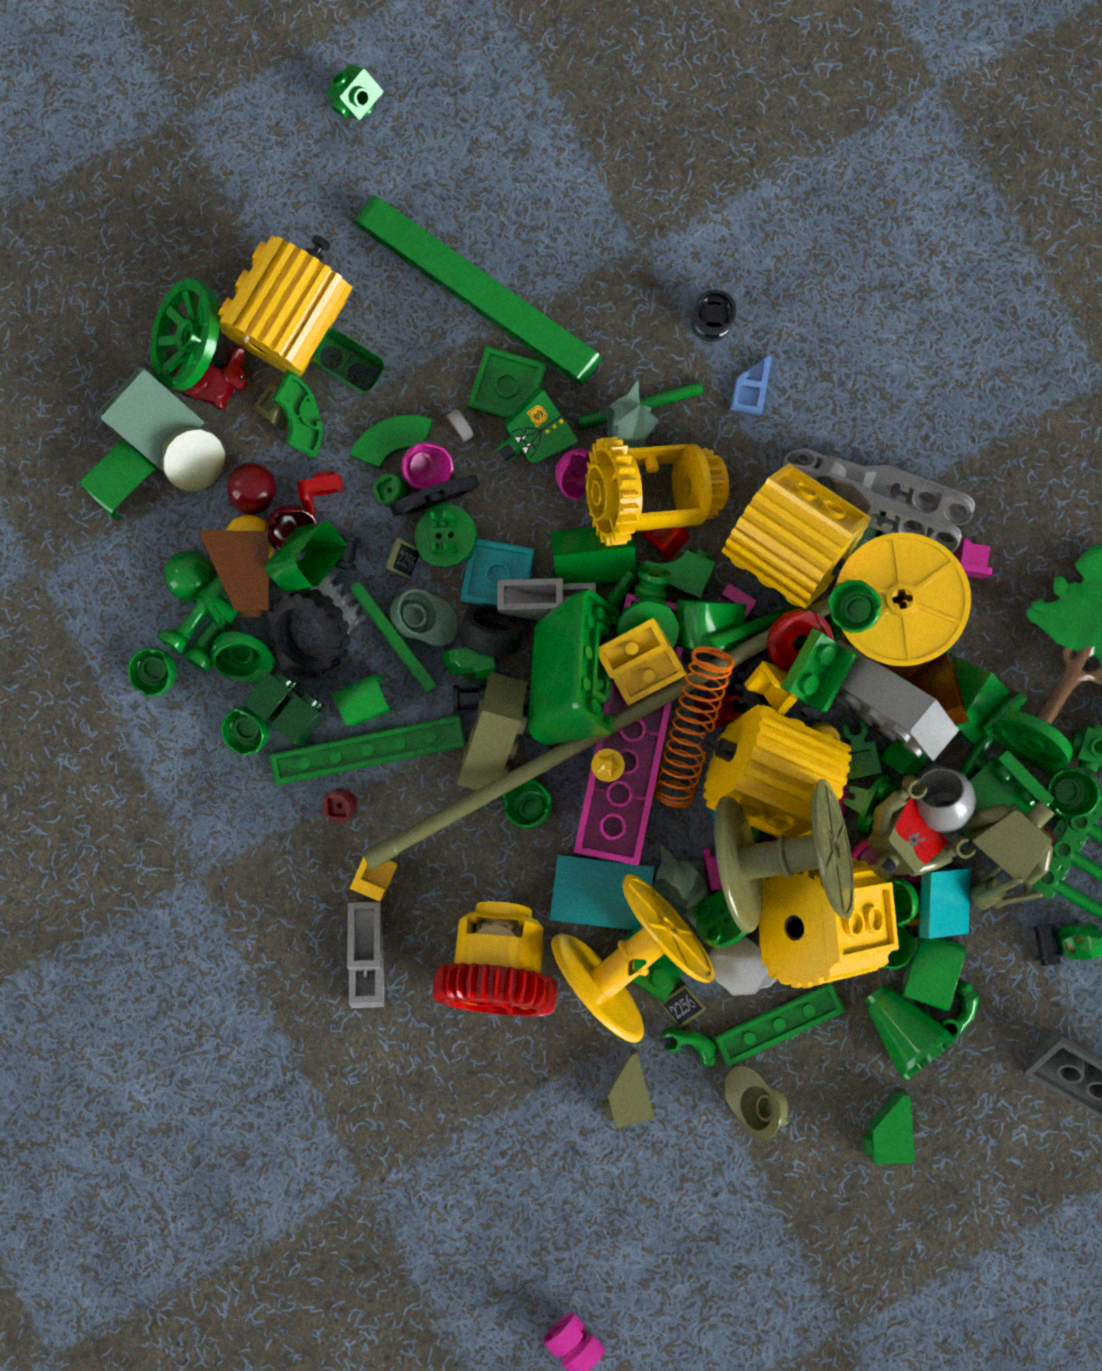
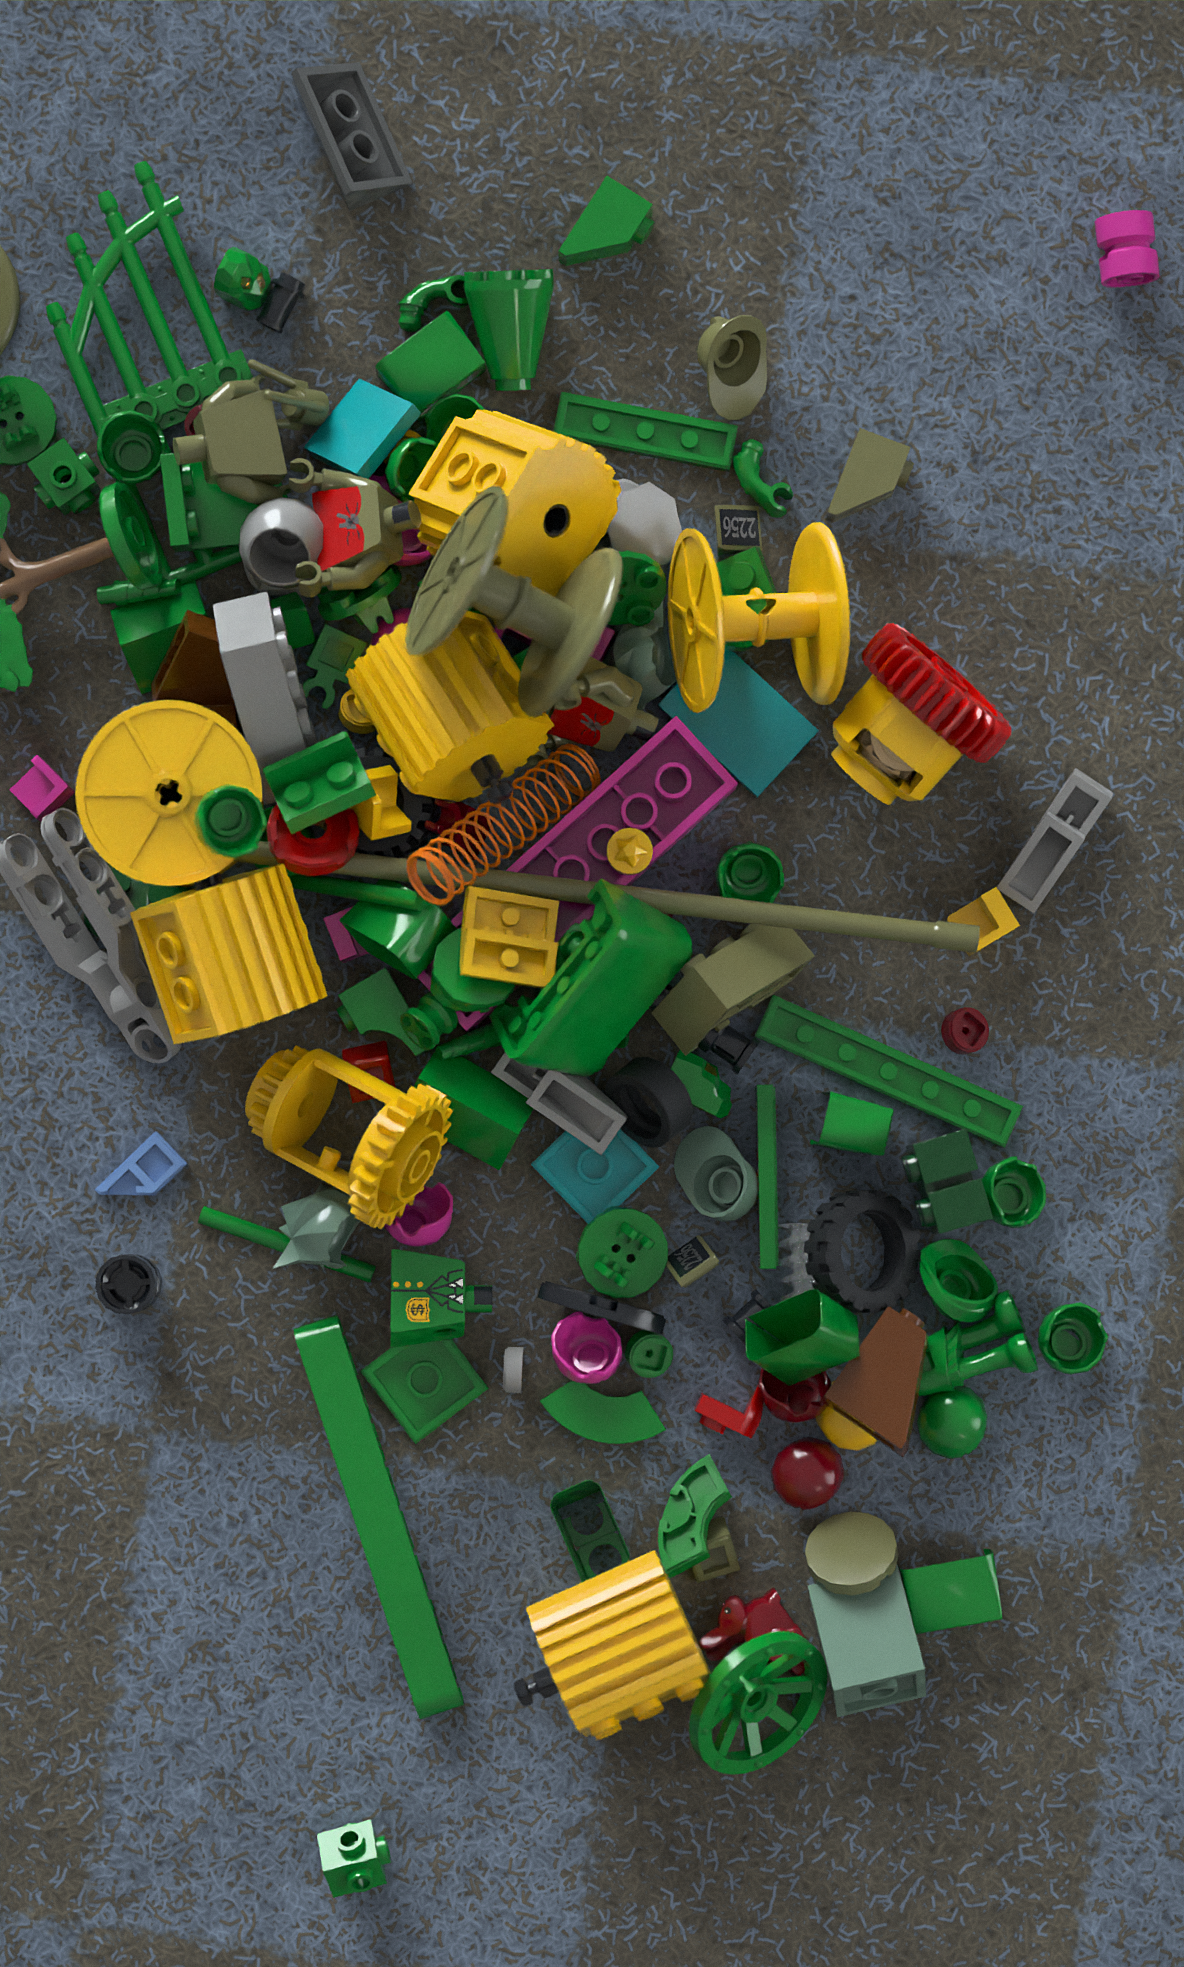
camera: 145 degrees left, 0 degrees up
(686, 835) = (597, 712): none -> olive torso

